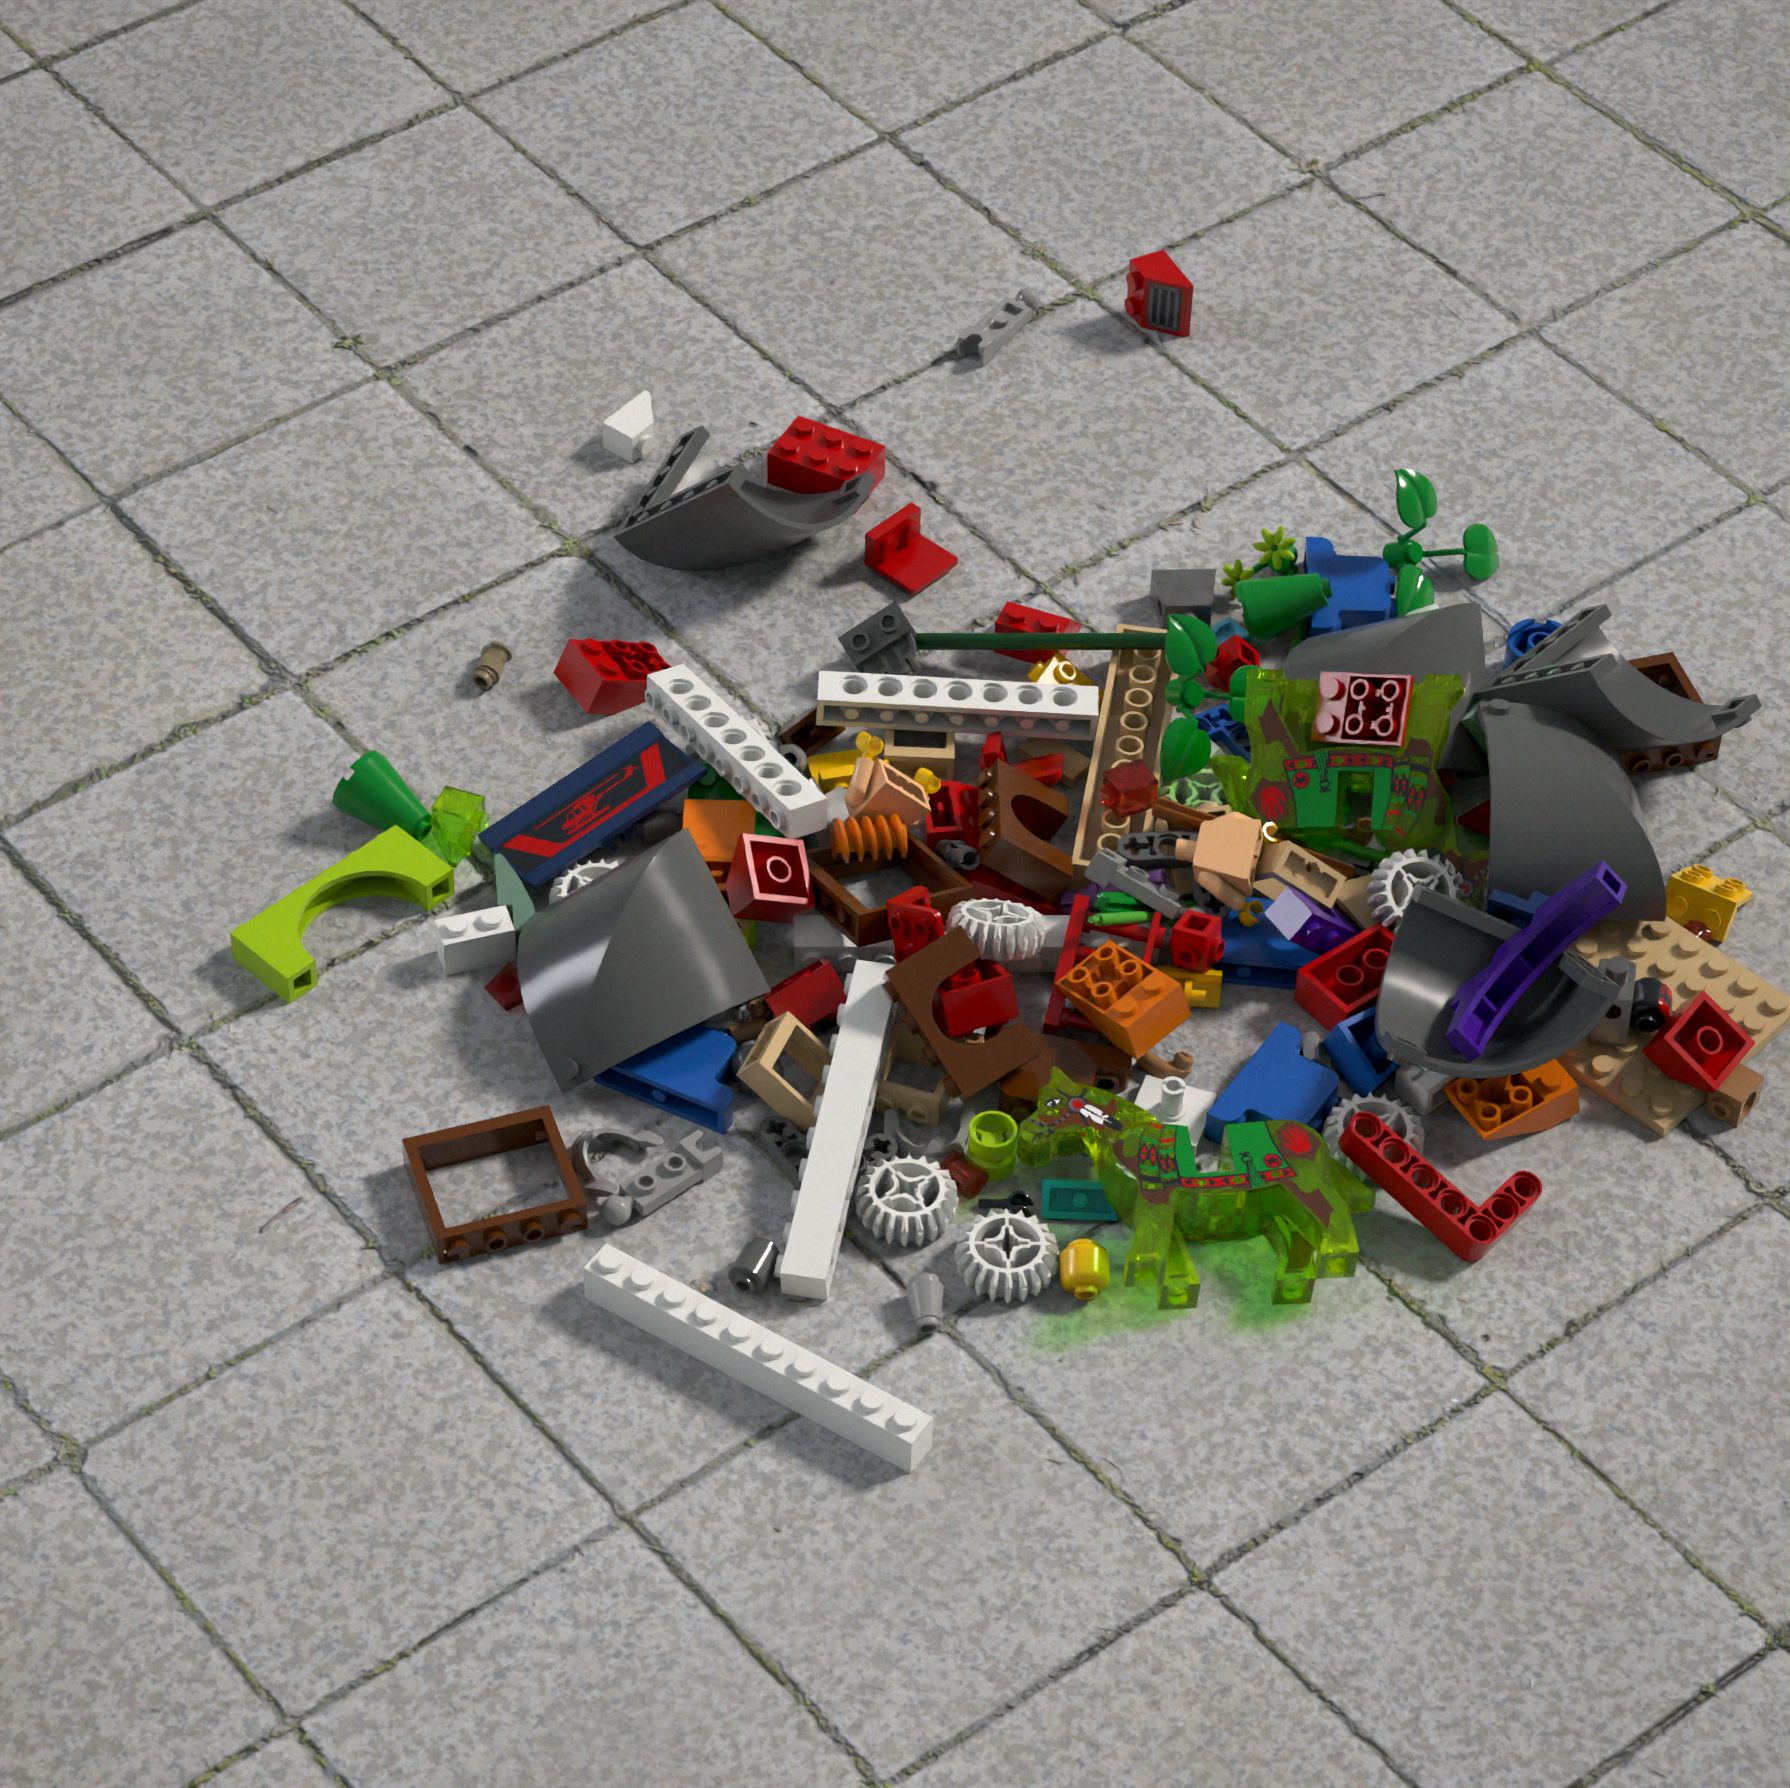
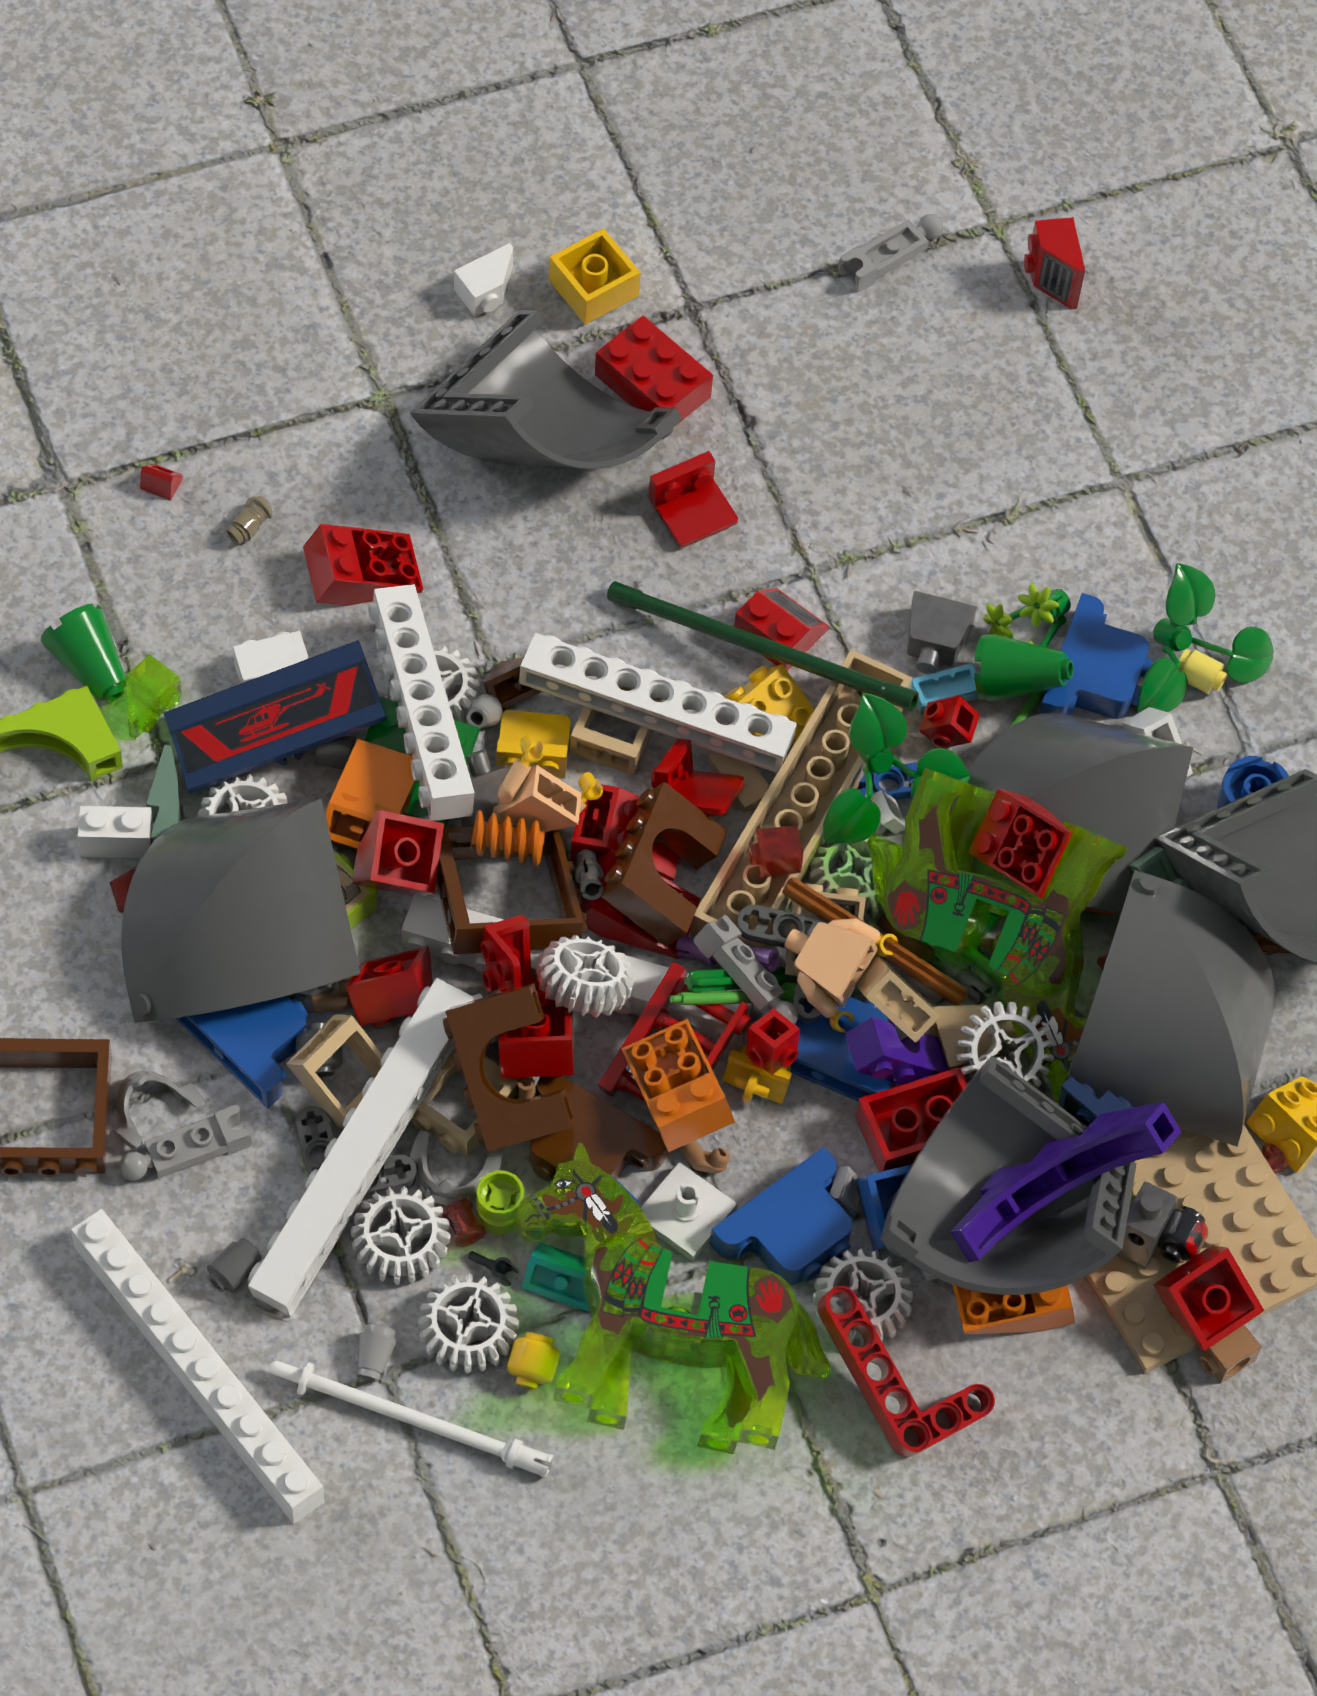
camera: 15 degrees right, 15 degrees up
(388, 654) = (160, 480): none -> red slope
(558, 762) = (268, 655): none -> white brick
(735, 400) = (594, 276): none -> yellow brick
(883, 643) = (621, 613): dark grey brick -> none
(1098, 1352) = (511, 1452): none -> white bar
(1444, 575) = (1202, 671): none -> light yellow brick

